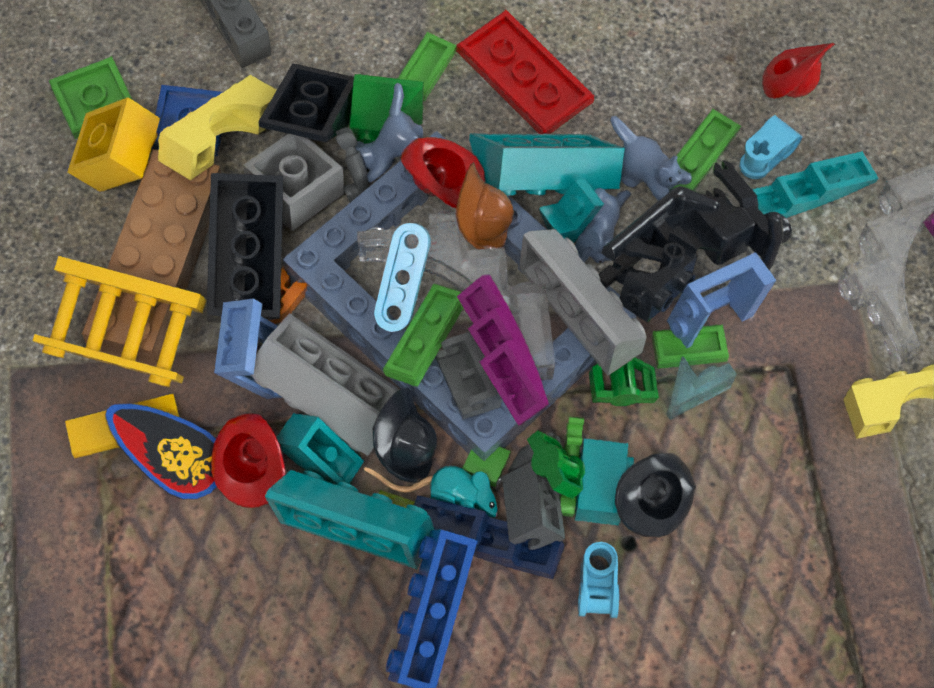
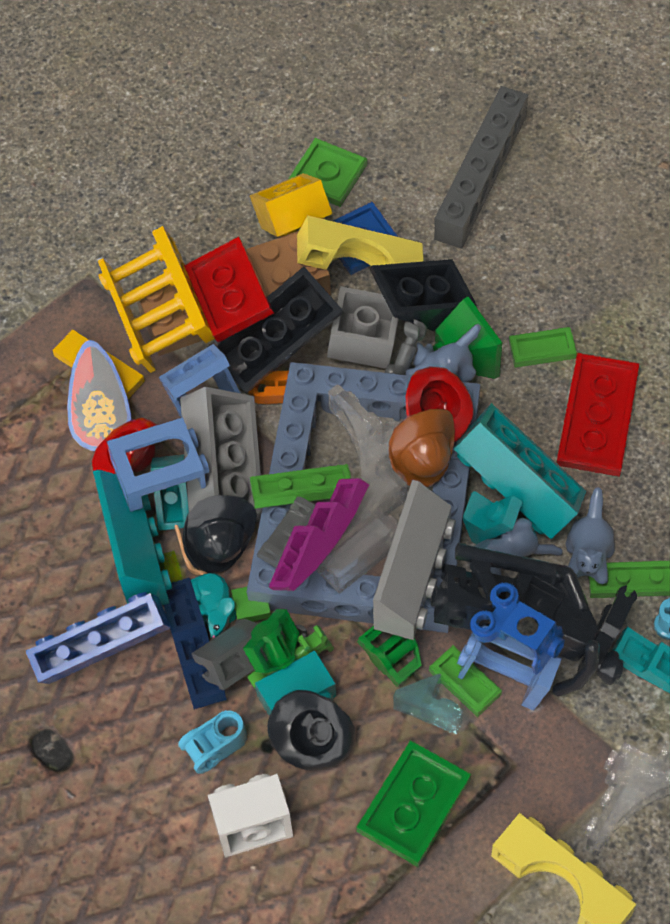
camera: 60 degrees right, 5 degrees down
(173, 250) = (228, 289): none -> red plate
(287, 468) = (133, 486): none -> medium blue panel
(391, 290) = (314, 438): medium azure plate -> none
(703, 594) = (250, 814): none -> white brick
(711, 257) = (507, 613): none -> blue piece
(774, 462) = (413, 803): none -> green plate

